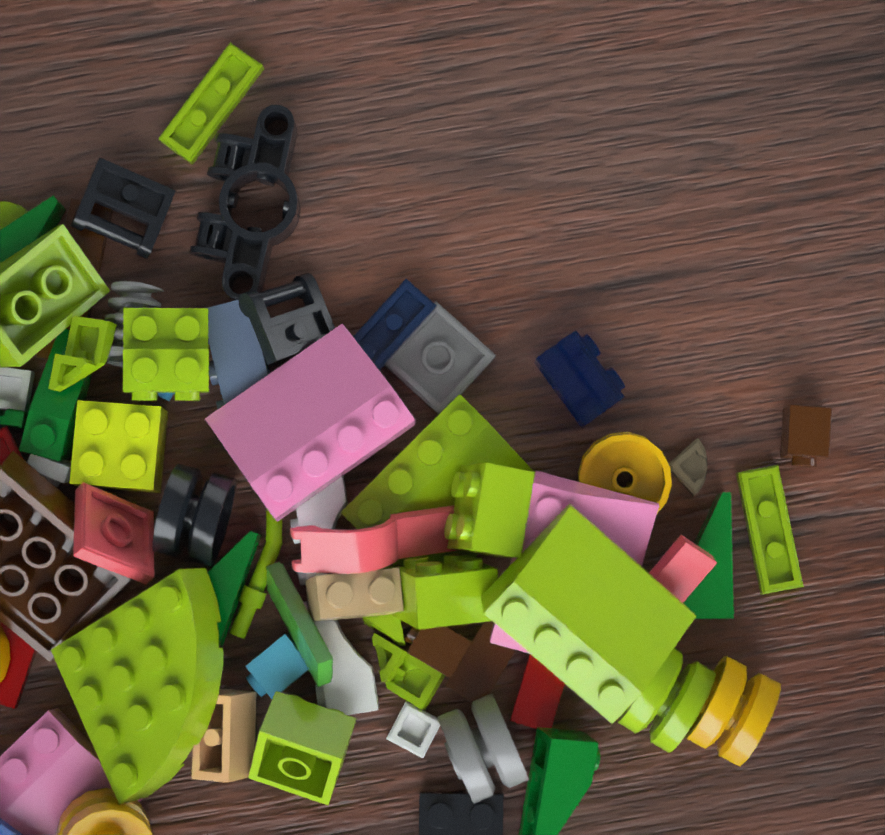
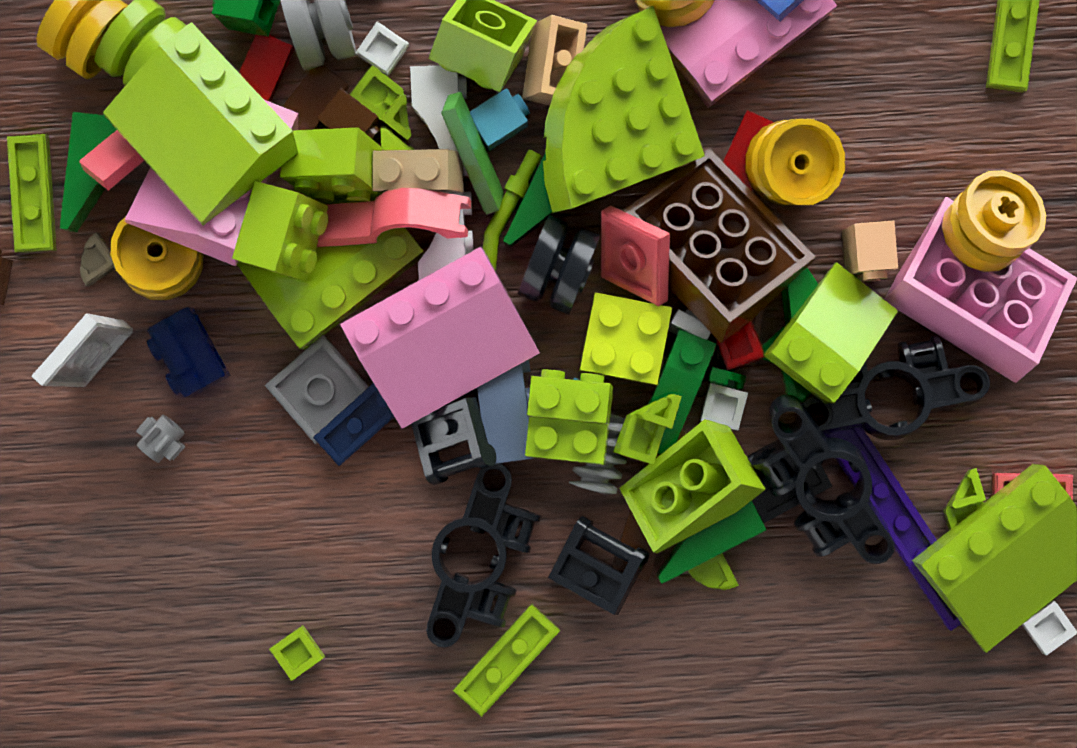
camera: 175 degrees left, 5 degrees up
(428, 84) = (297, 652): none -> lime plate
(597, 286) = (160, 438): none -> light grey gear
(683, 357) = (83, 352): none -> white tile

